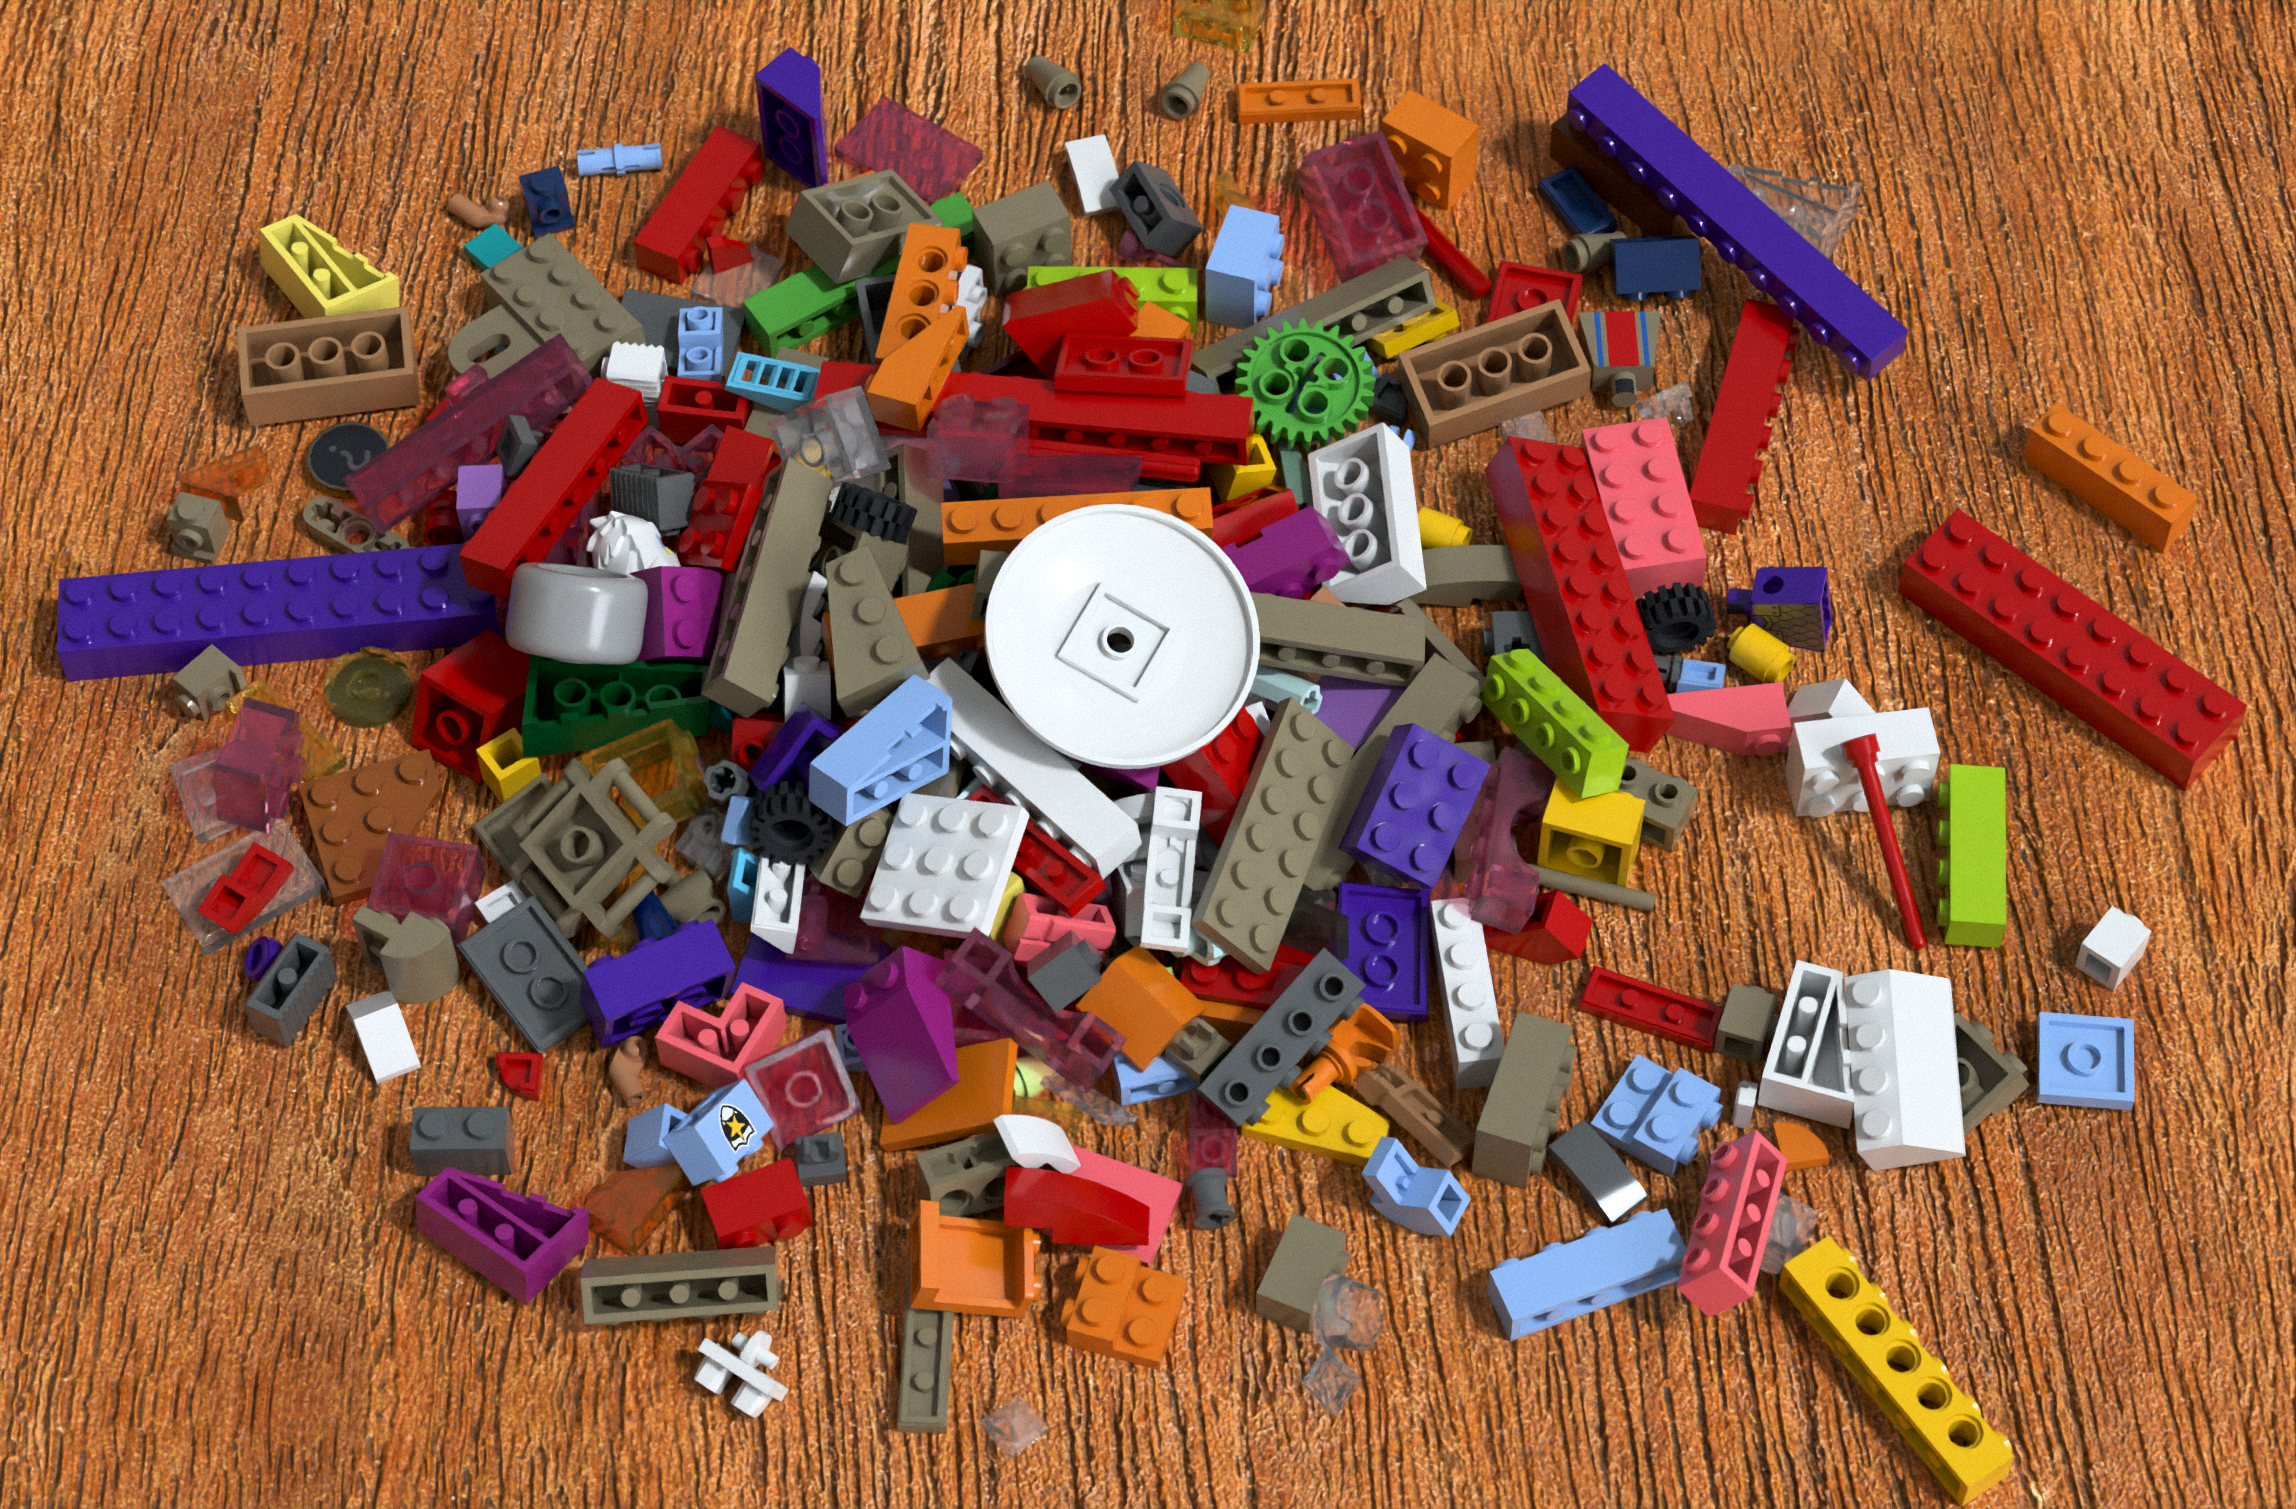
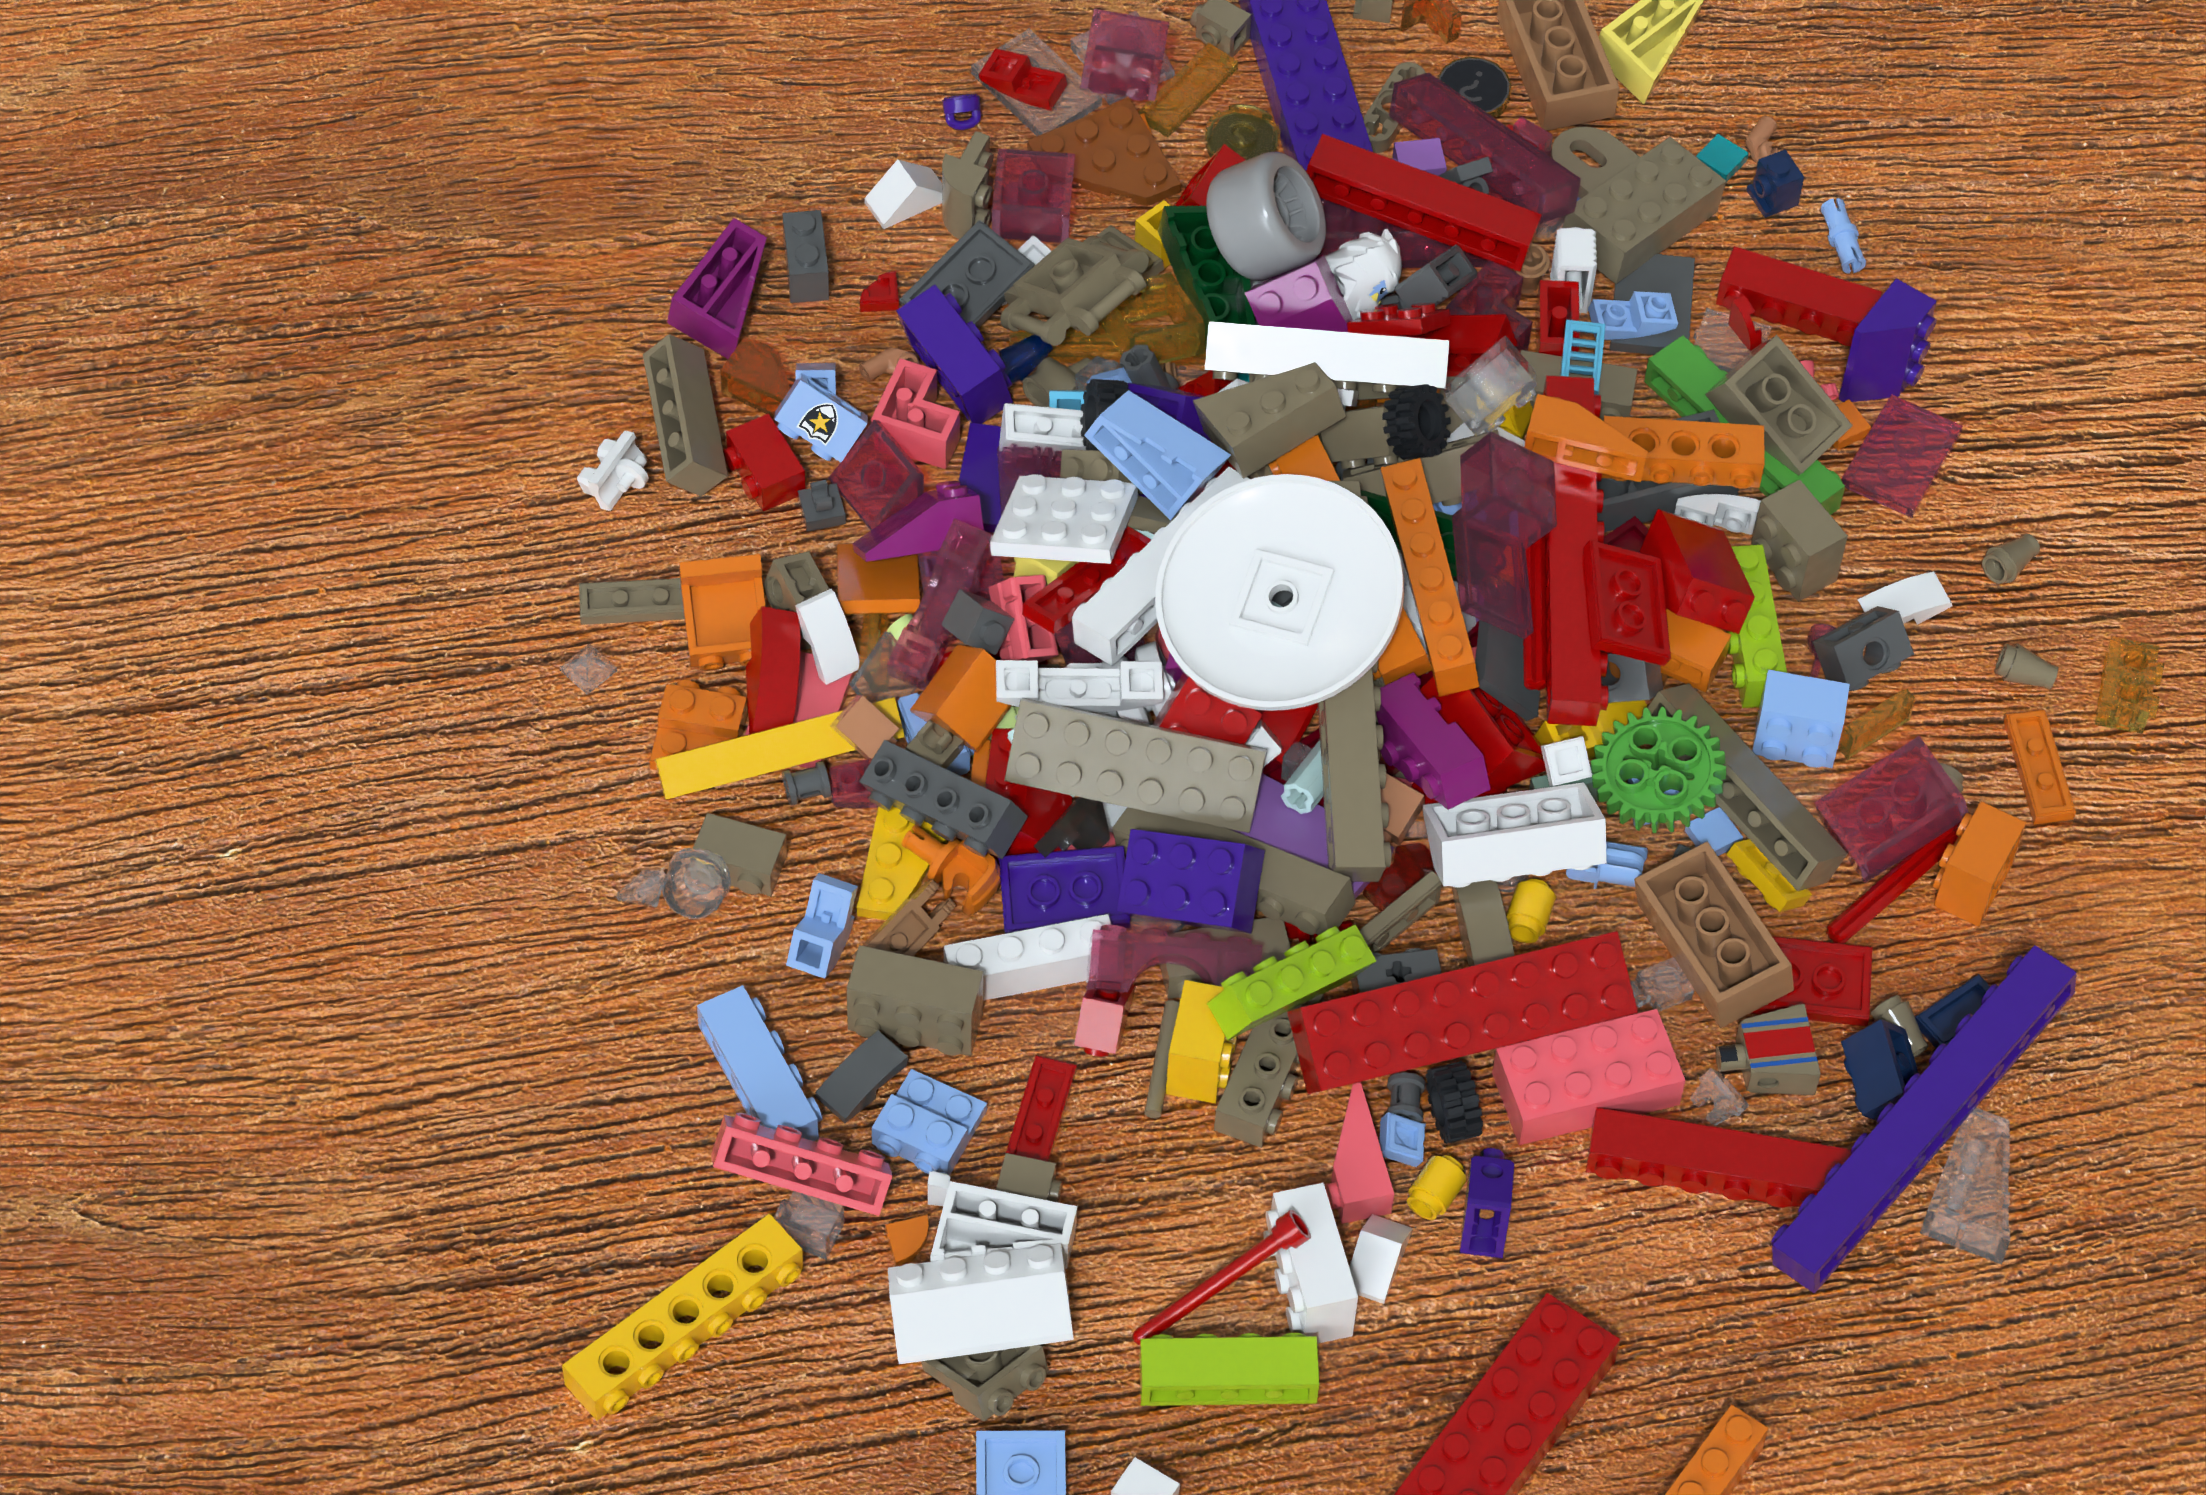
camera: 80 degrees right, 0 degrees up
(291, 989) = (929, 121): dark grey brick -> none
(1169, 1114) = (864, 727): none -> nougat brick
(1171, 1216) = (759, 753): none -> yellow tile
(1283, 463) = (1566, 761): none -> white tile

